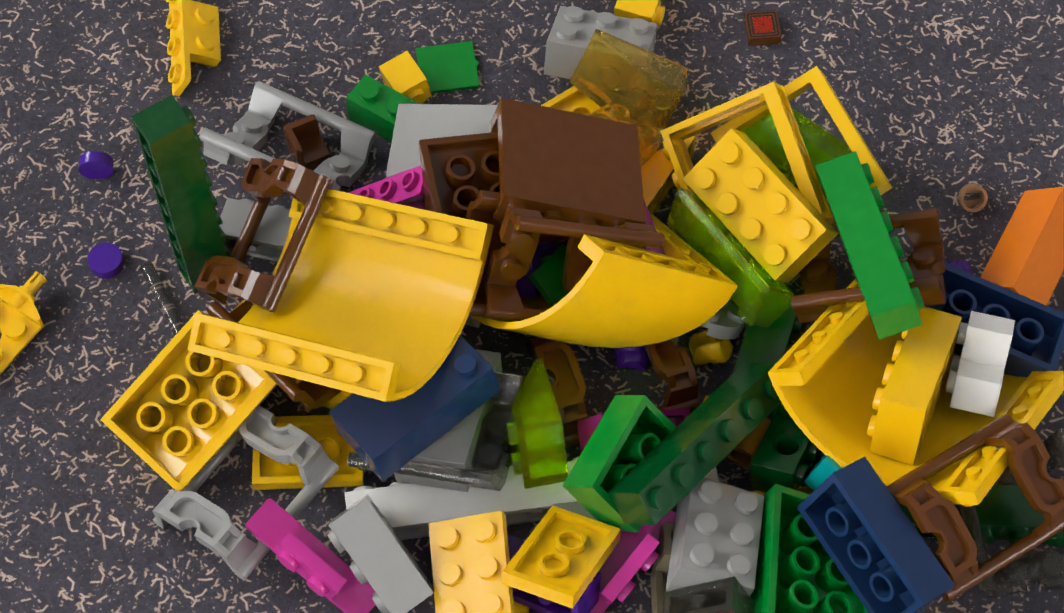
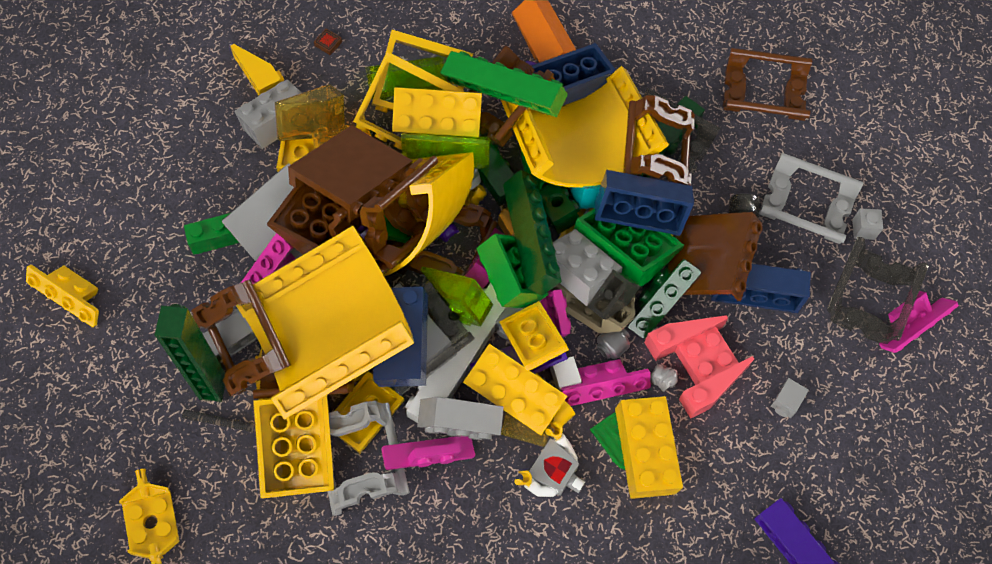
camera: 55 degrees left, 5 degrees up
(96, 165) = (99, 394): dark purple tile -> none
(105, 260) = (160, 431): dark purple tile -> none
(252, 131) = (149, 286): light grey piece -> none
(306, 142) = (190, 285): reddish brown panel -> none
(405, 77) = (200, 209): yellow brick -> none
(449, 66) = (210, 189): green piece -> none
(913, 386) = (585, 128): yellow brick -> none
(972, 204) = (498, 36): medium nougat hinge -> none
(979, 371) = (590, 94): white brick -> none

